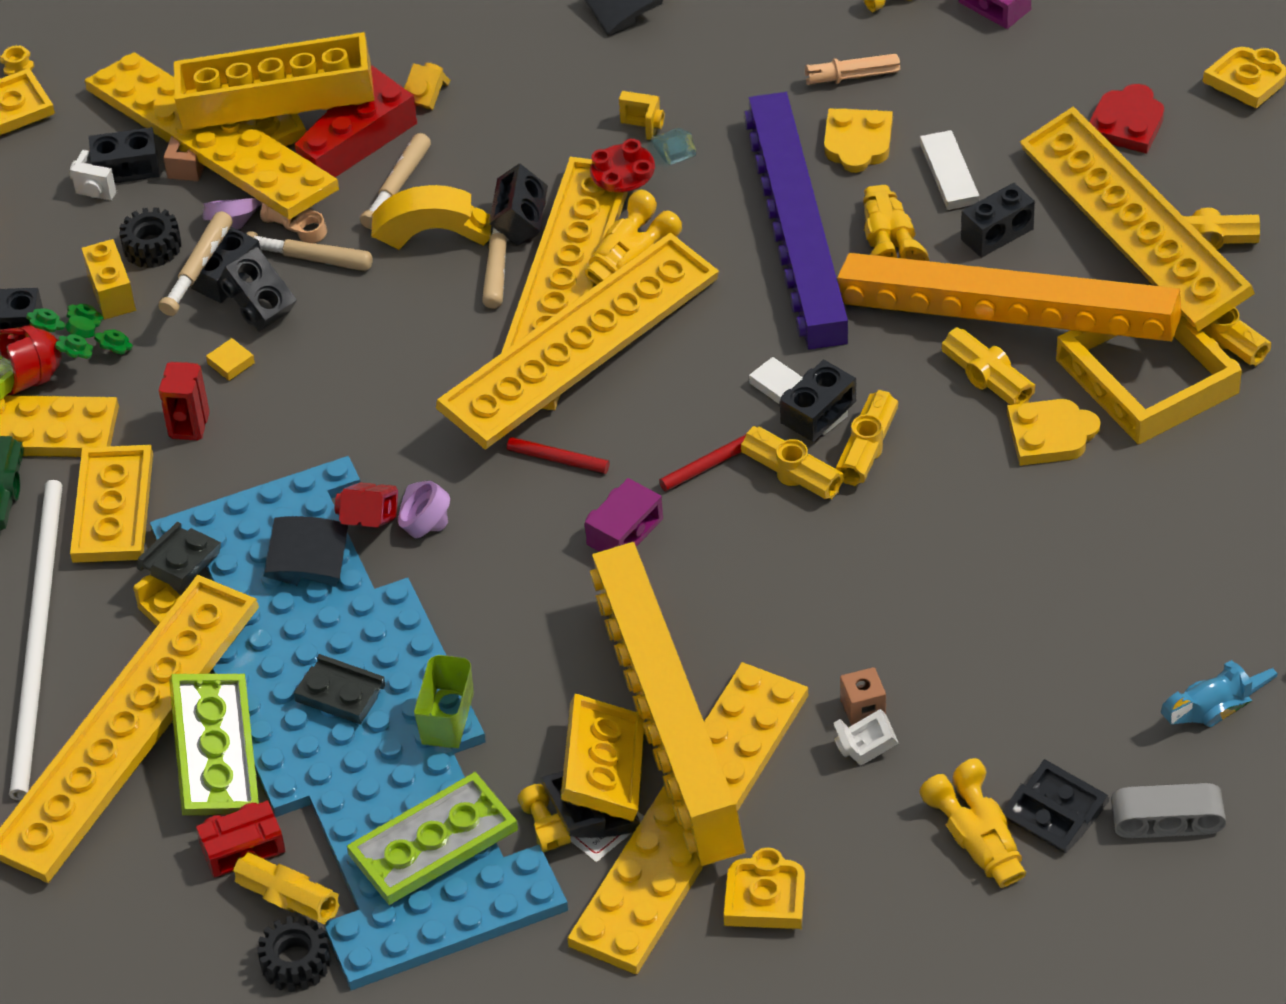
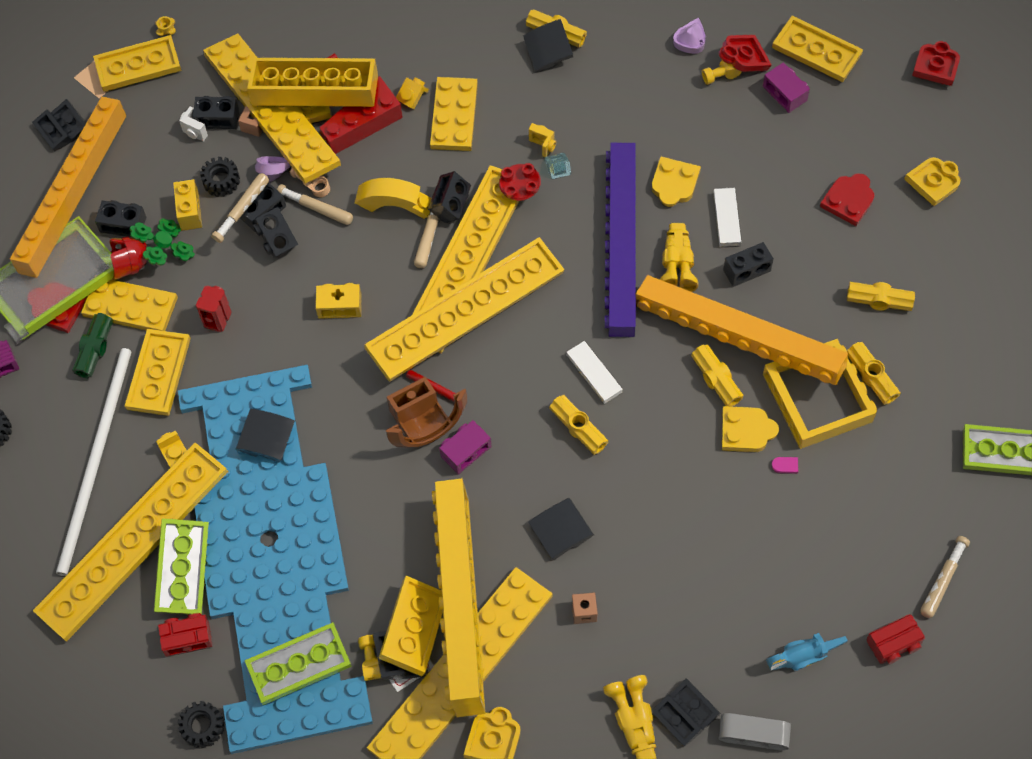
camera: 10 degrees right, 15 degrees up
(179, 555) = (187, 424): pearl dark grey plate -> none
(230, 359) = (251, 276): yellow tile -> none
(286, 888) = (204, 679): yellow piece -> none
(339, 689) = (265, 540): pearl dark grey plate -> none
(367, 504) = (309, 409): red brick -> none
(377, 366) = (330, 307): none -> yellow brick
(401, 172) = (385, 153): tan piece -> none
(423, 509) = (344, 414): lavender piece -> none
(452, 676) = (319, 554): lime piece -> none
(497, 105) = (454, 114): none -> yellow plate
(538, 488) = (421, 415): none -> dark orange piece
(624, 241) = (508, 238): yellow piece -> none
(701, 464) = (524, 411): red bar -> none
(799, 601) = (561, 528): none -> black slope
(817, 400) = (607, 386): black brick -> none
(852, 68) = (683, 128): light nougat axle -> none
(865, 738) = (579, 639): white bracket -> none
(867, 437) = (622, 424): yellow piece -> none
(1122, 467) = (785, 465): none -> dark pink piece
(1136, 217) = (836, 284): yellow plate -> none

